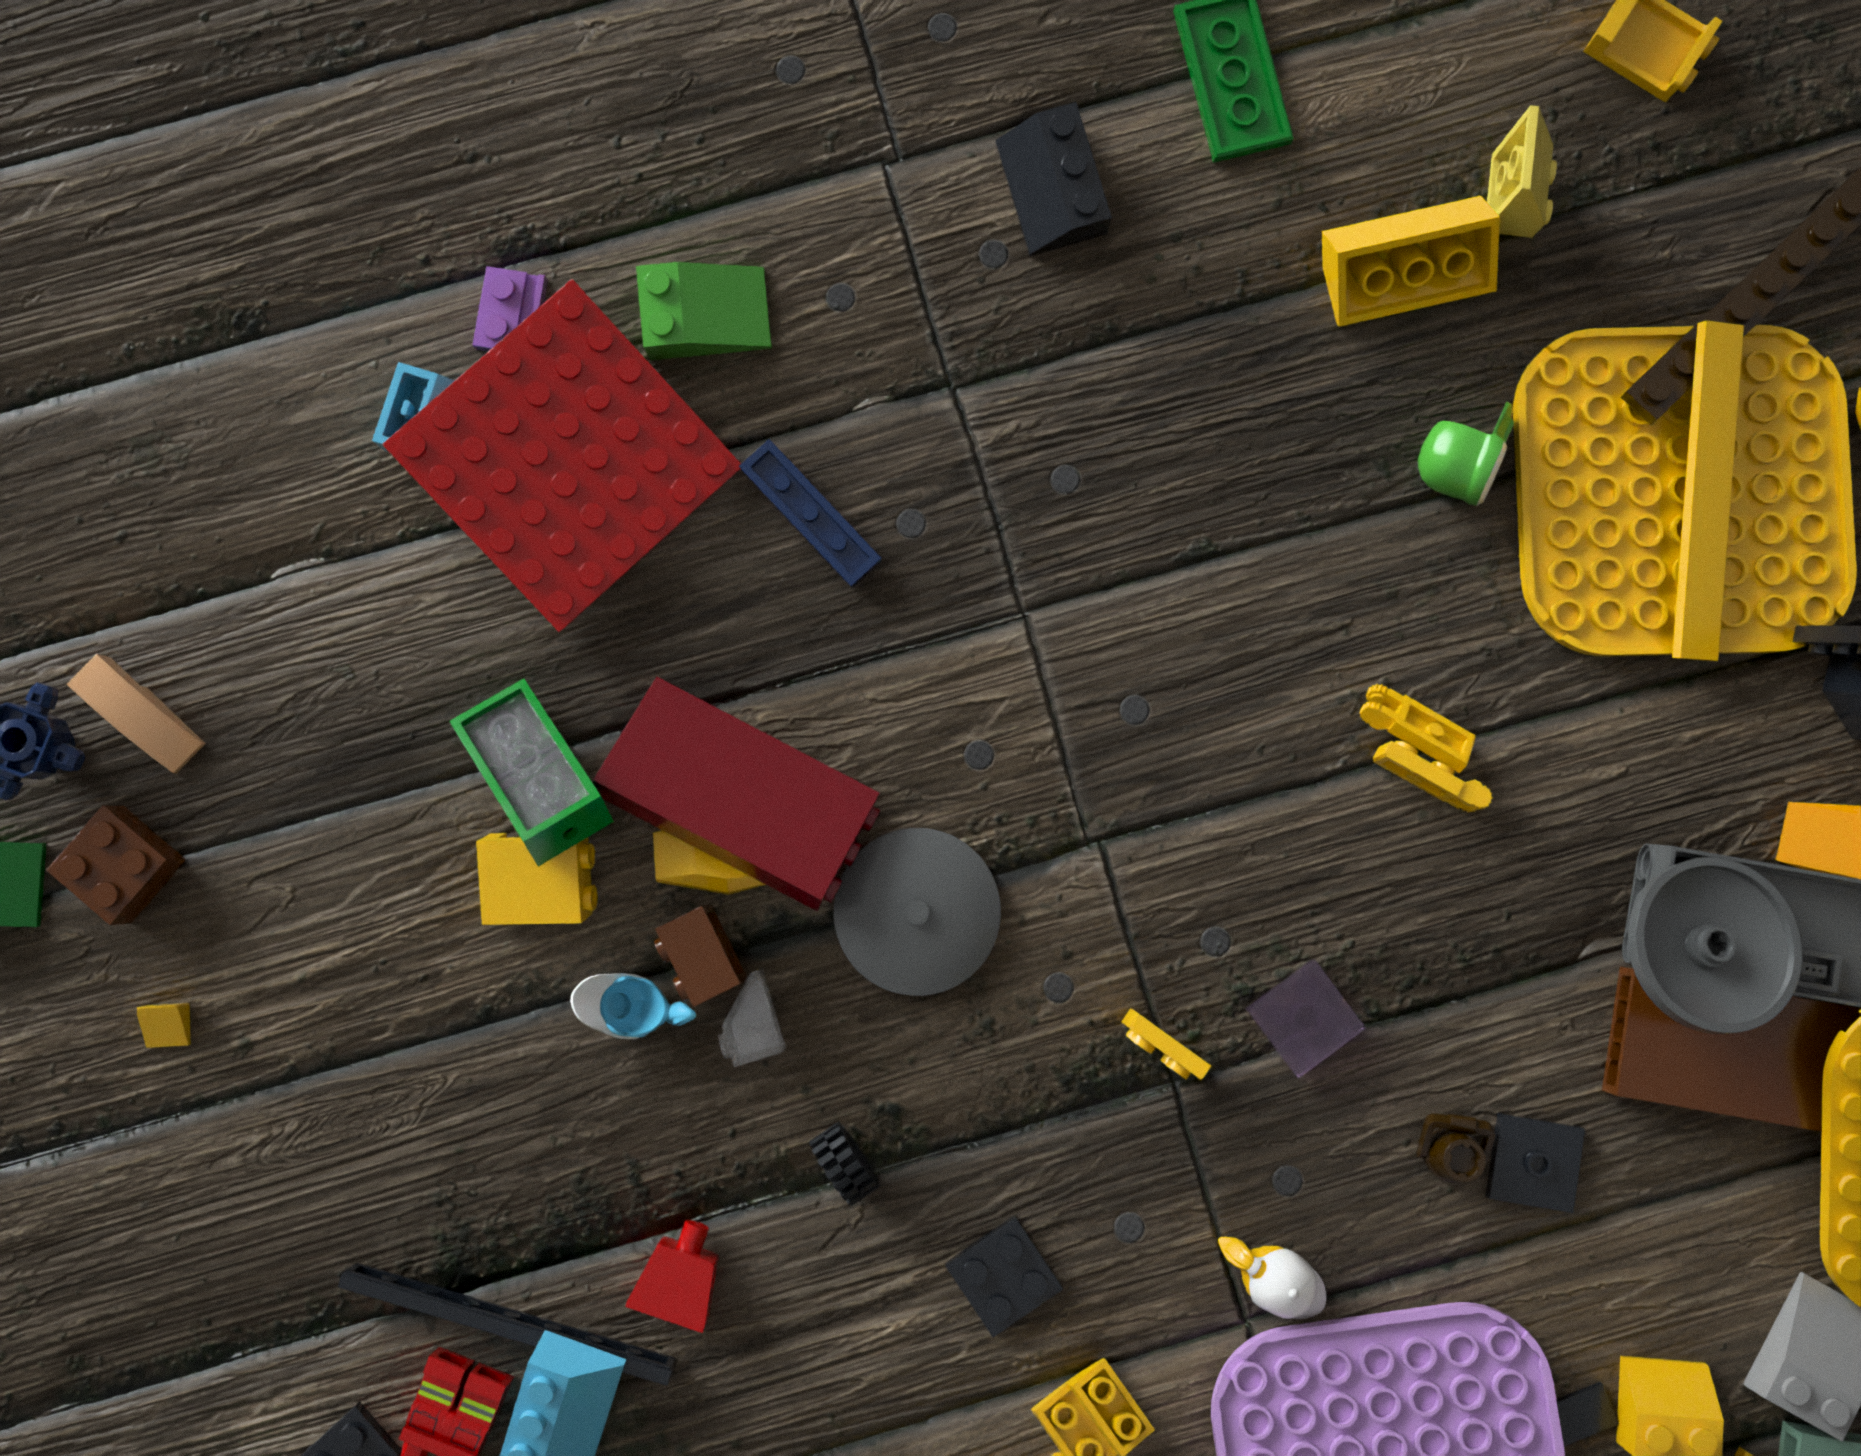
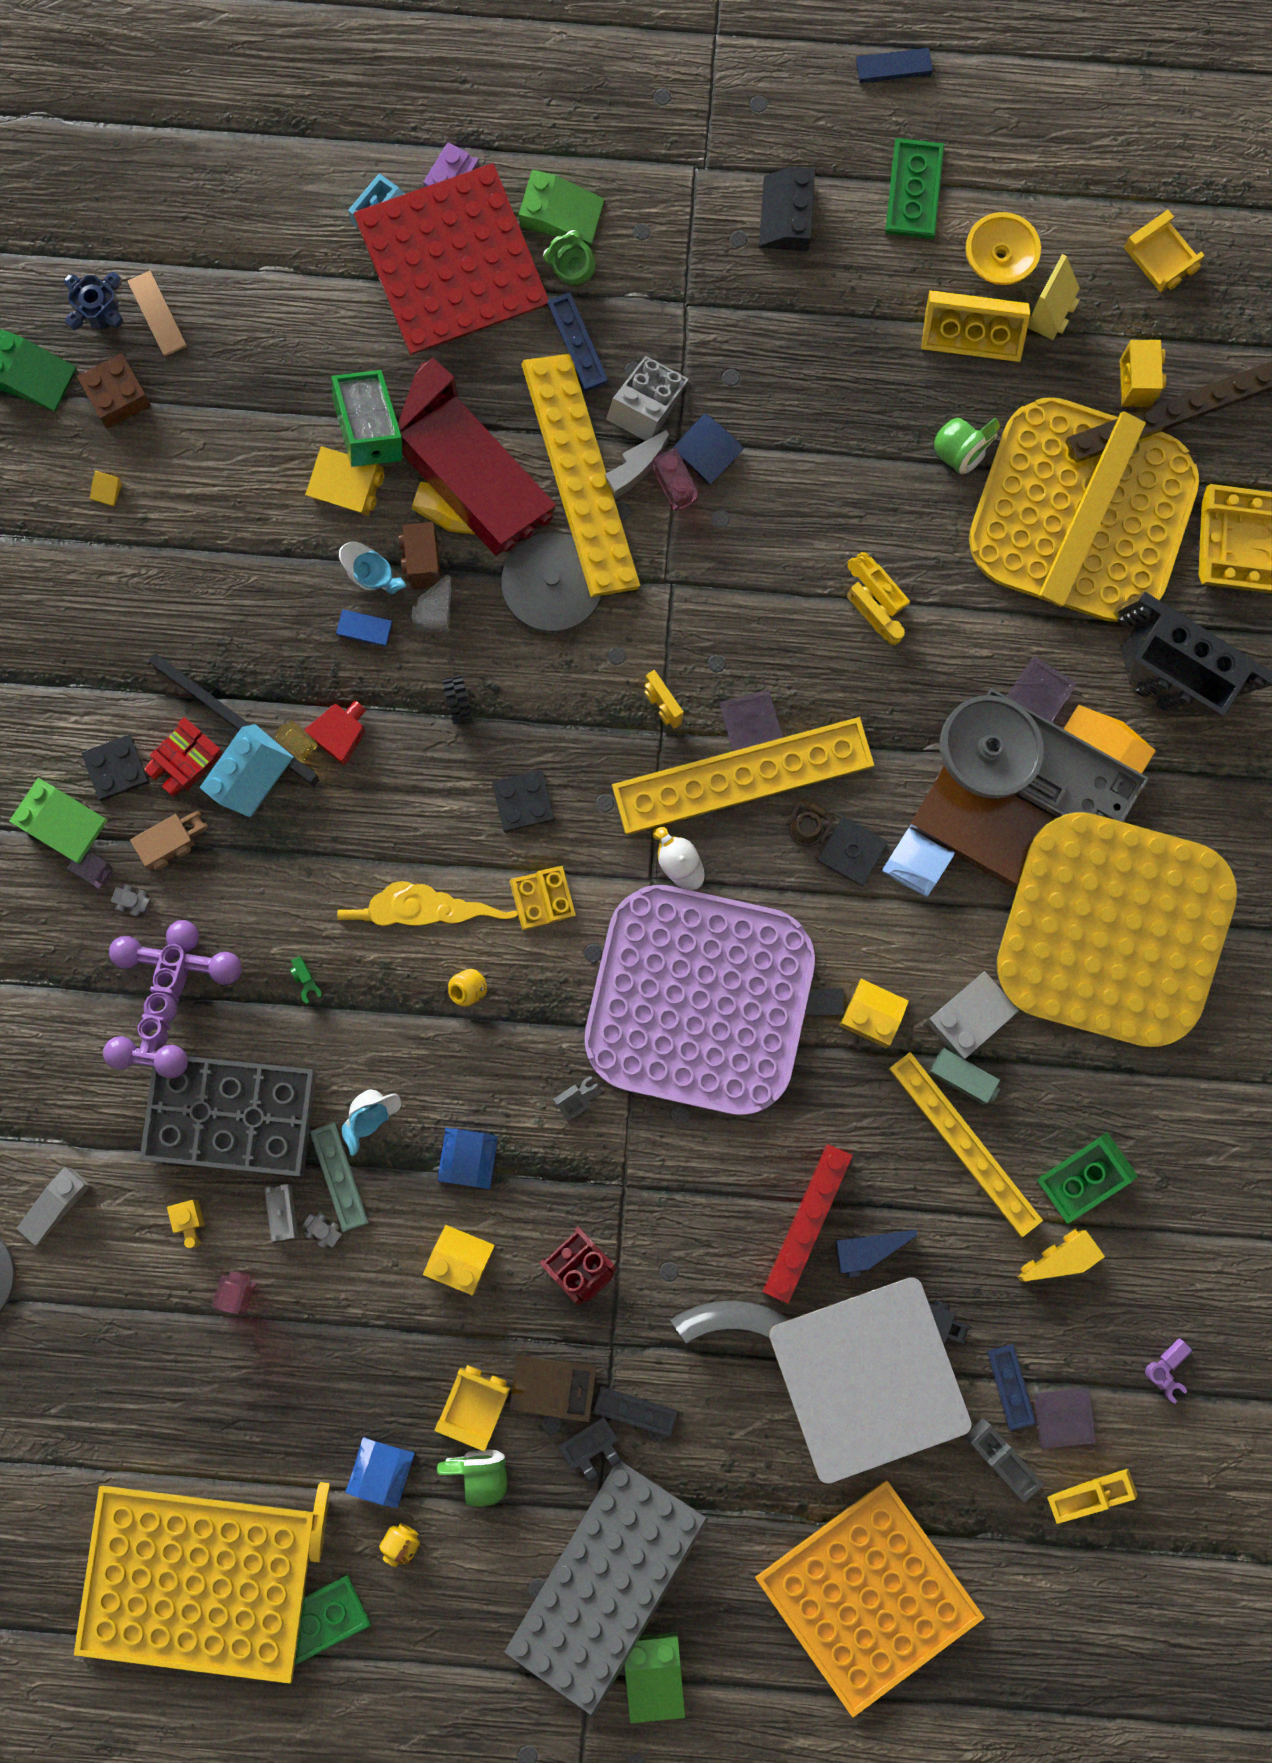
camera: 20 degrees right, 5 degrees down
(611, 692) = (429, 390): none -> dark red slope
(613, 1323) = (295, 740): none -> clear yellow brick
(654, 1094) = (364, 628): none -> blue tile
(752, 387) = (571, 258): none -> bright green piece
(896, 726) = (580, 475): none -> yellow plate
(952, 564) = (646, 399): none -> light grey slope
(976, 676) = (636, 464): none -> light grey slope
(1045, 679) = (675, 479): none -> clear pink brick
(1075, 610) = (708, 448): none -> dark blue slope
(1325, 1111) = (742, 775): none -> yellow plate
(1424, 104) = (1006, 235): none -> yellow dish
(1647, 1145) = (917, 862): none -> light blue slope
(1698, 244) = (1142, 373): none -> yellow brick
(1726, 803) = (1042, 689): none -> clear purple plate

